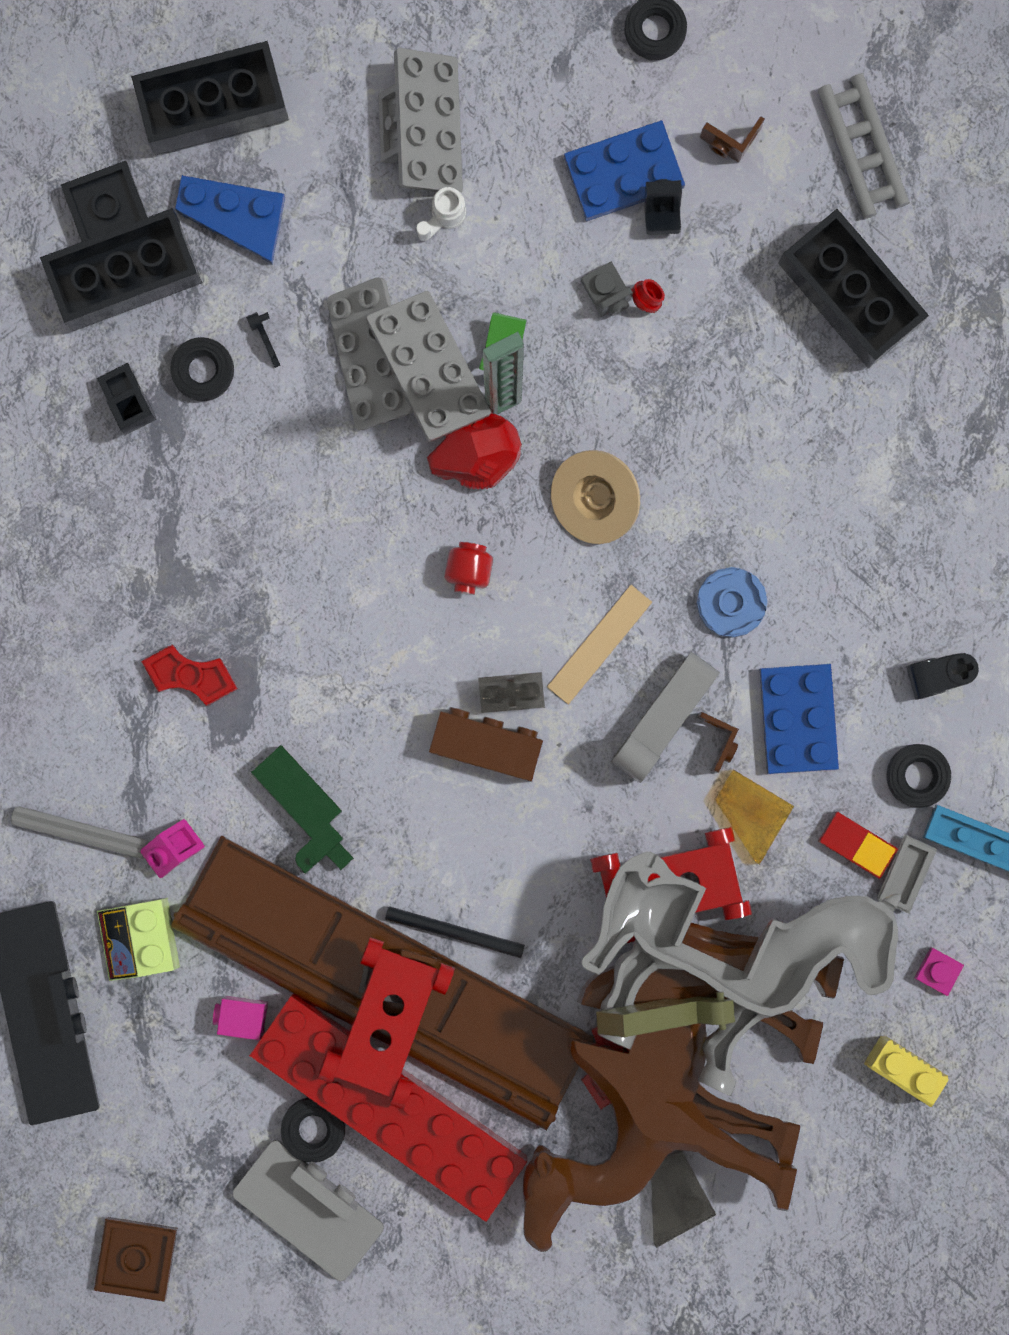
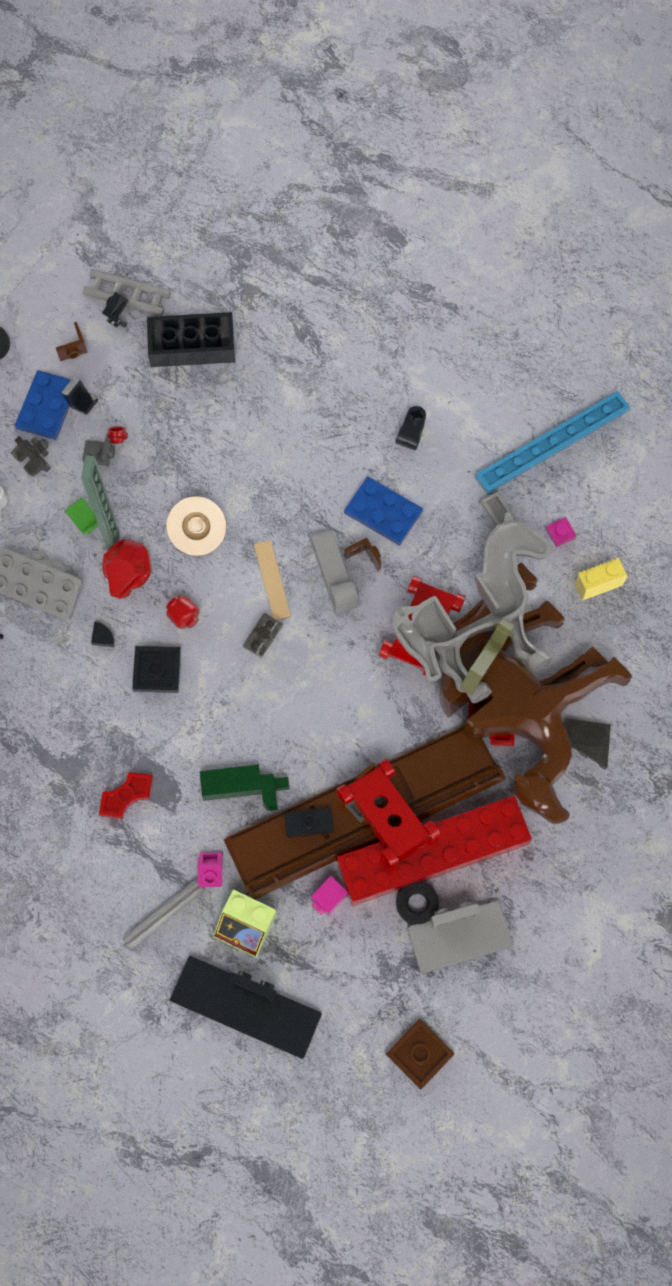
camera: 55 degrees left, 15 degrees down
(313, 927) = (309, 822): none -> black plate
(367, 488) = (102, 636): none -> black tile
(372, 591) = (156, 669): none -> black plate
(428, 366) = (65, 555): light grey bracket -> none
(454, 932) = (367, 753): black bar -> none
(486, 744) = (280, 667): reddish brown brick -> none
(543, 212) = (33, 451): none -> clear smoke hips
(731, 602) = (300, 502): medium blue tile -> none
(753, 813) = (414, 562): clear yellow wing -> none
(826, 150) = (114, 308): none -> black bracket
(858, 845) = (468, 526): red tile -> none
(940, 775) = (461, 463): black tyre -> none

